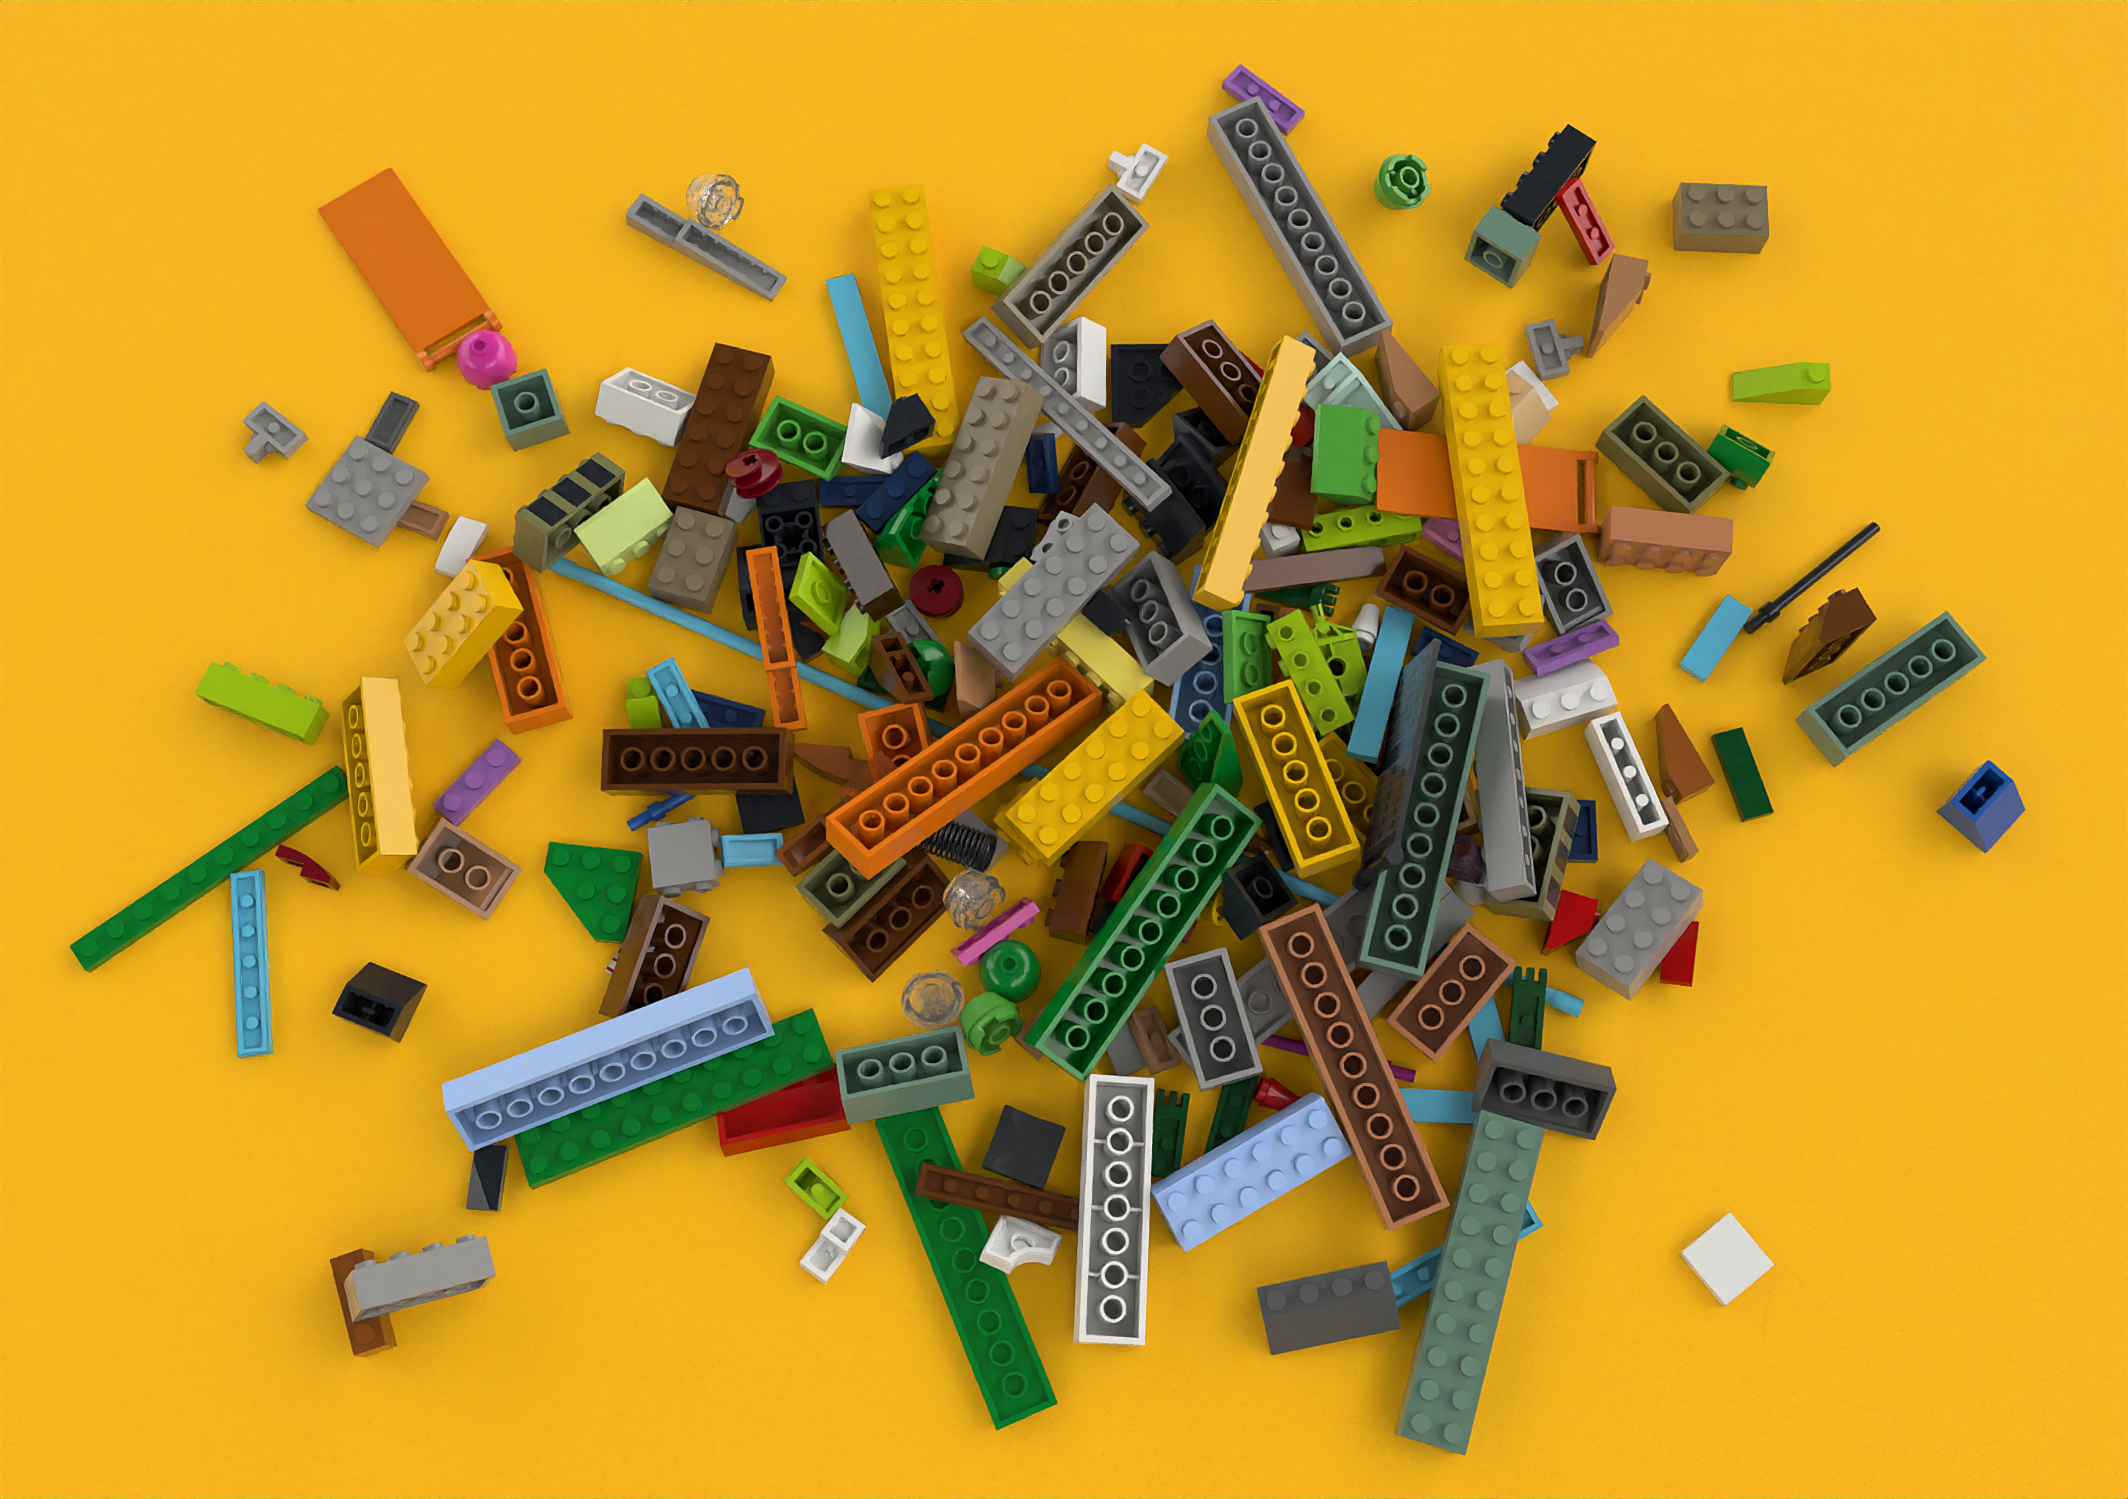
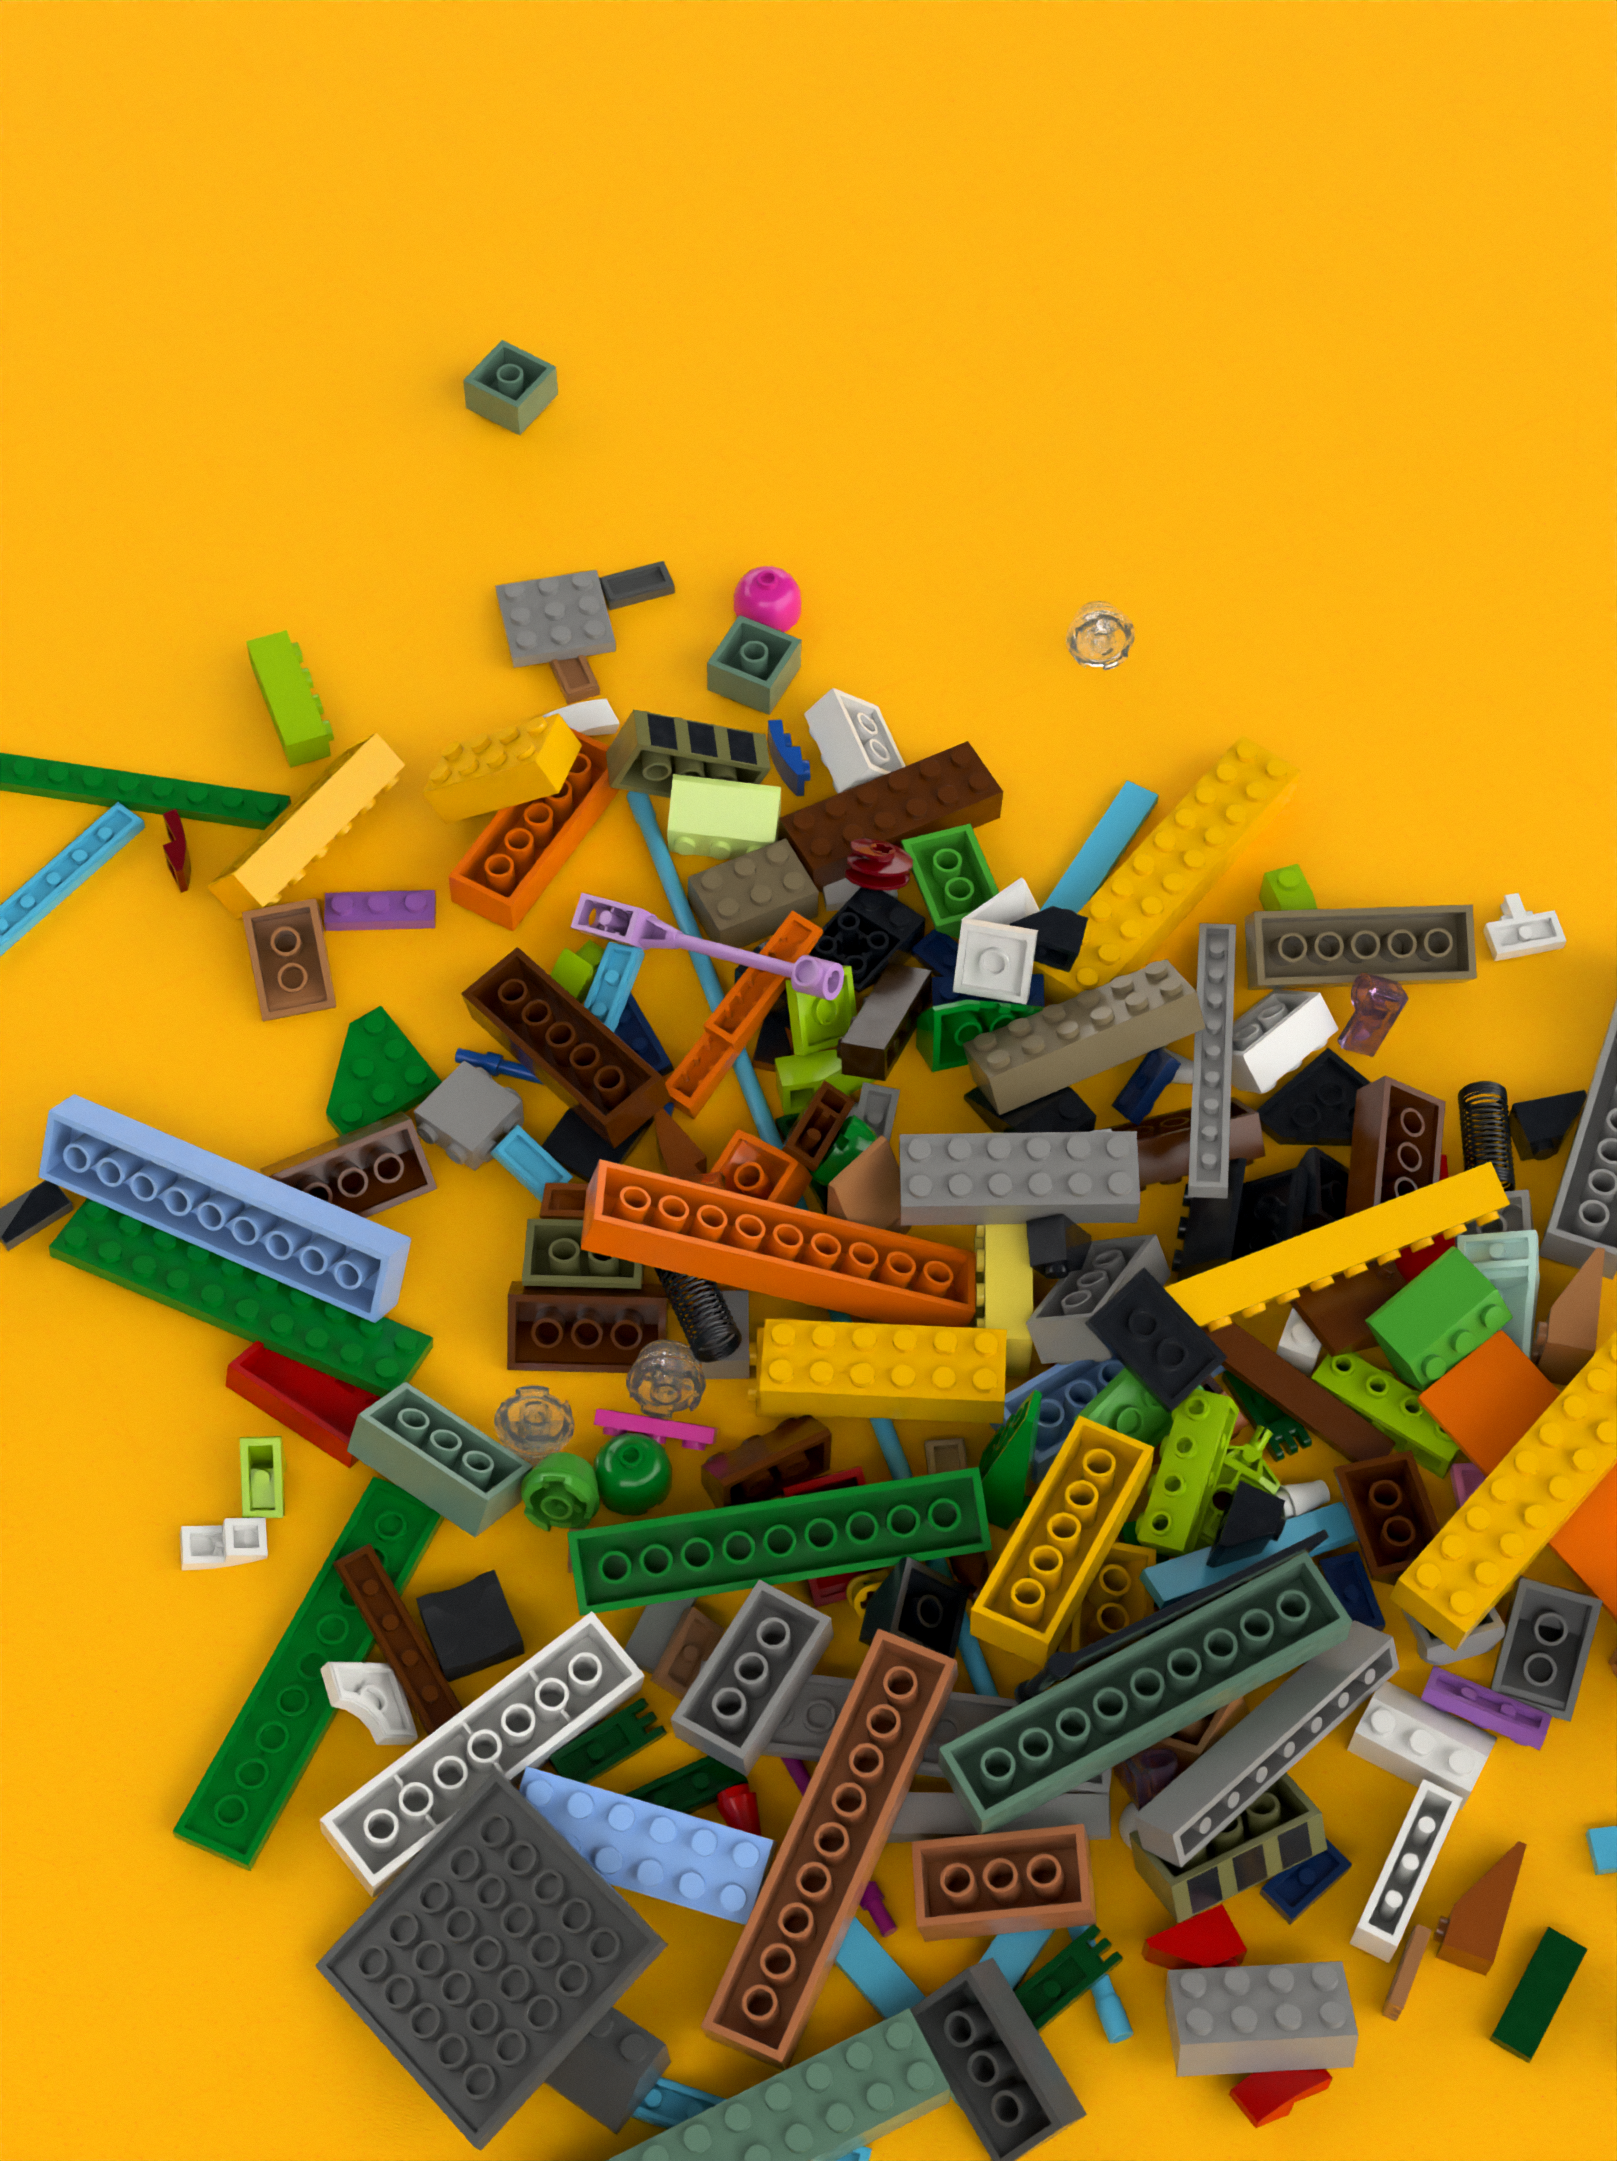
camera: 45 degrees right, 15 degrees down
(160, 361) = (510, 387): none -> sand green brick
(271, 434) = (533, 512): light grey hinge -> none
(380, 1001) = (109, 998): black slope -> none
(407, 265) = (787, 481): orange flag -> none
(621, 453) = (787, 758): none -> blue slope
(661, 644) = (644, 930): none -> lavender bar
(704, 247) = (1052, 669): light grey slope -> none
(891, 470) = (995, 961): none -> white tile
(938, 578) = (932, 1105): dark red piece -> none
(1116, 293) = (1376, 1007): none -> plate
(1227, 291) = (1487, 1125): none -> black piece
(1232, 616) = (1156, 1340): none -> black tile
(1250, 1315) = (490, 1958): none -> dark grey plate
(1268, 281) = (1544, 1124): none -> black slope
(1367, 671) = (1246, 1525): none -> black slope

